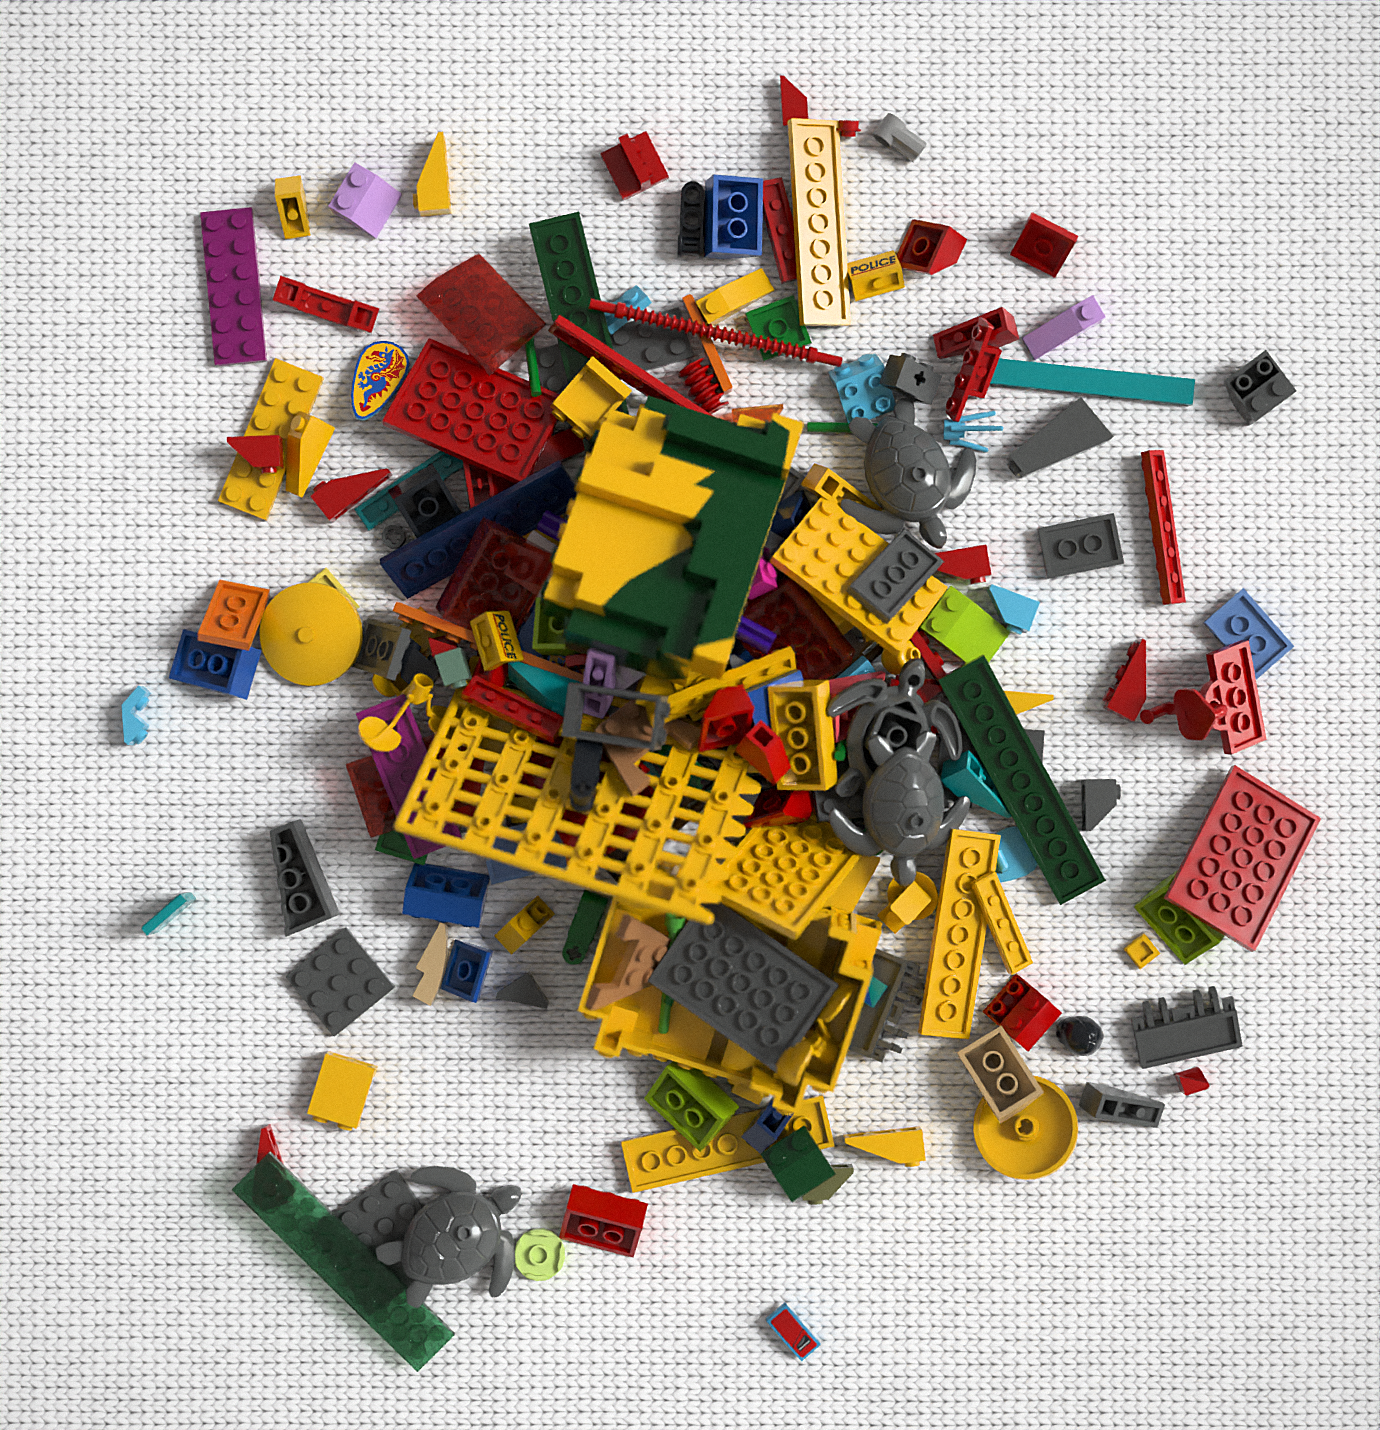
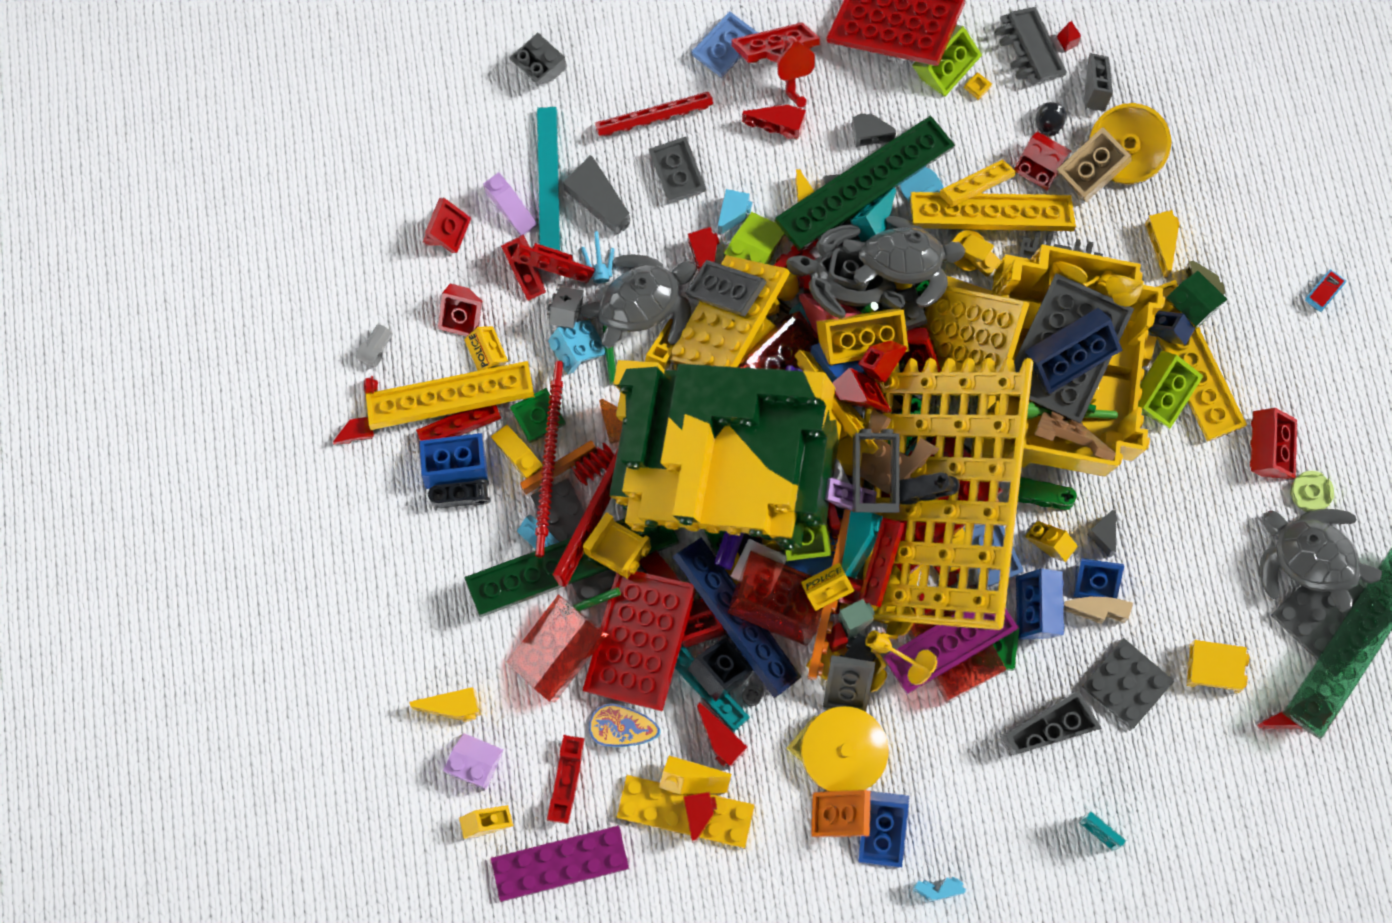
camera: 90 degrees left, 15 degrees down
(634, 165) = (419, 547): red bracket -> none
(734, 986) = (1074, 350): none -> dark blue slope

